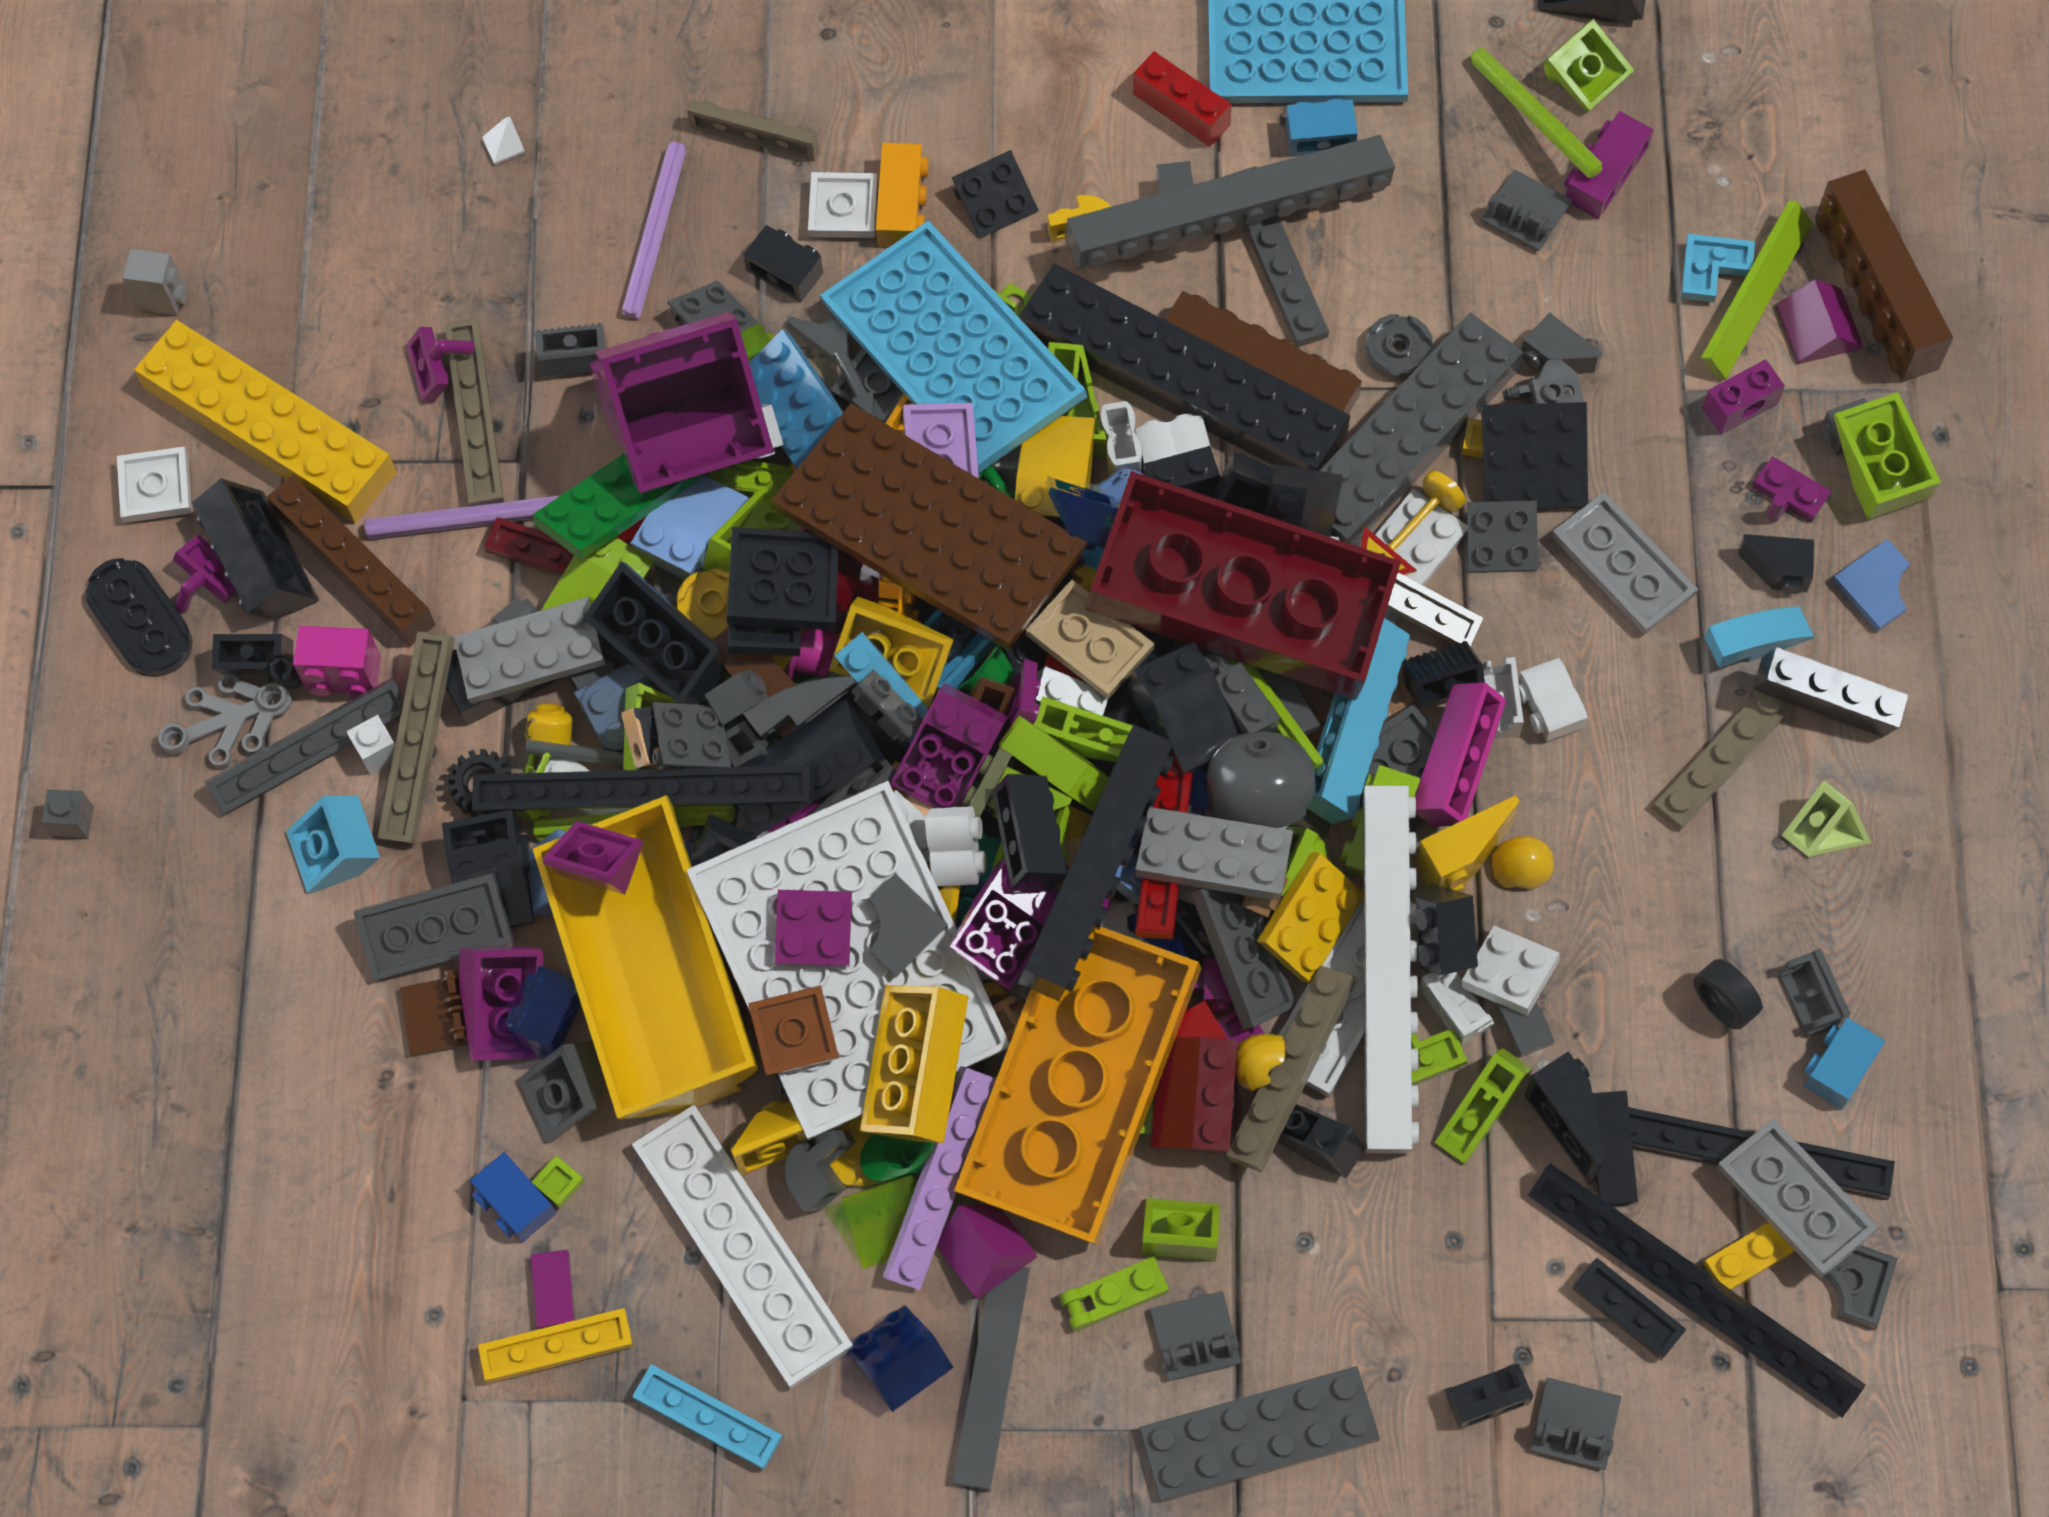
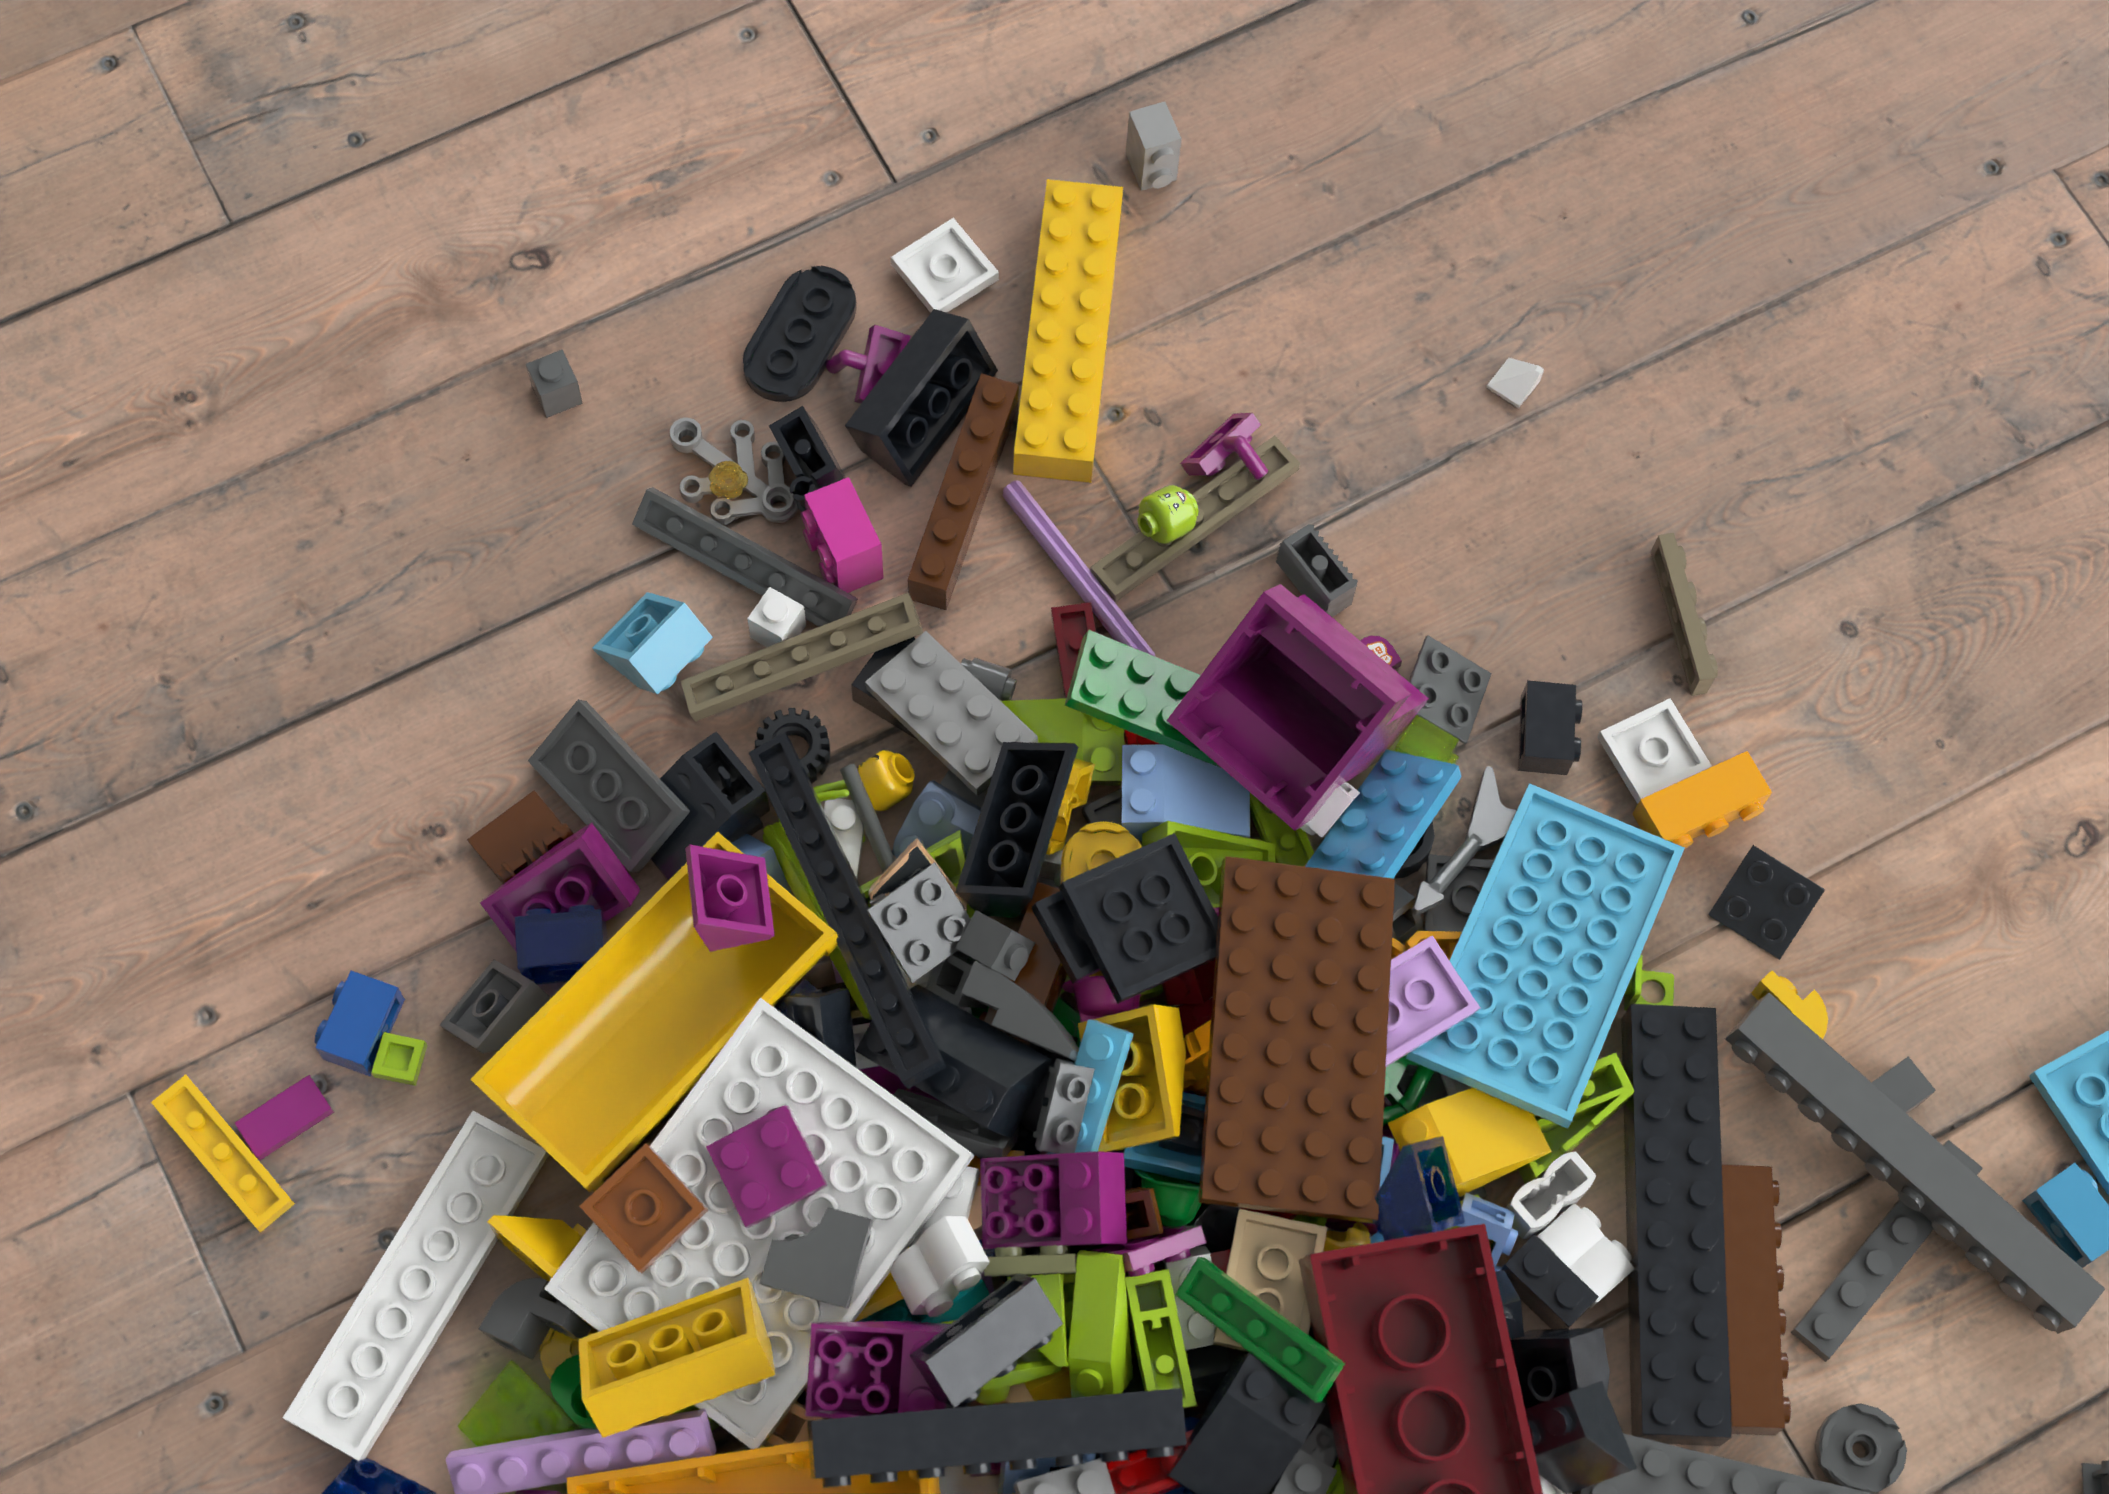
camera: 55 degrees right, 0 degrees up
(230, 716) = (728, 470): none -> clear yellow plate
(464, 425) = (1167, 514): none -> lime head
(654, 230) = (1507, 579): lavender axle -> none
(707, 1417) = (214, 1350): medium azure plate -> none
(1119, 655) = (1260, 1329): none -> green tile
(1182, 99) = (2010, 1042): red brick -> none

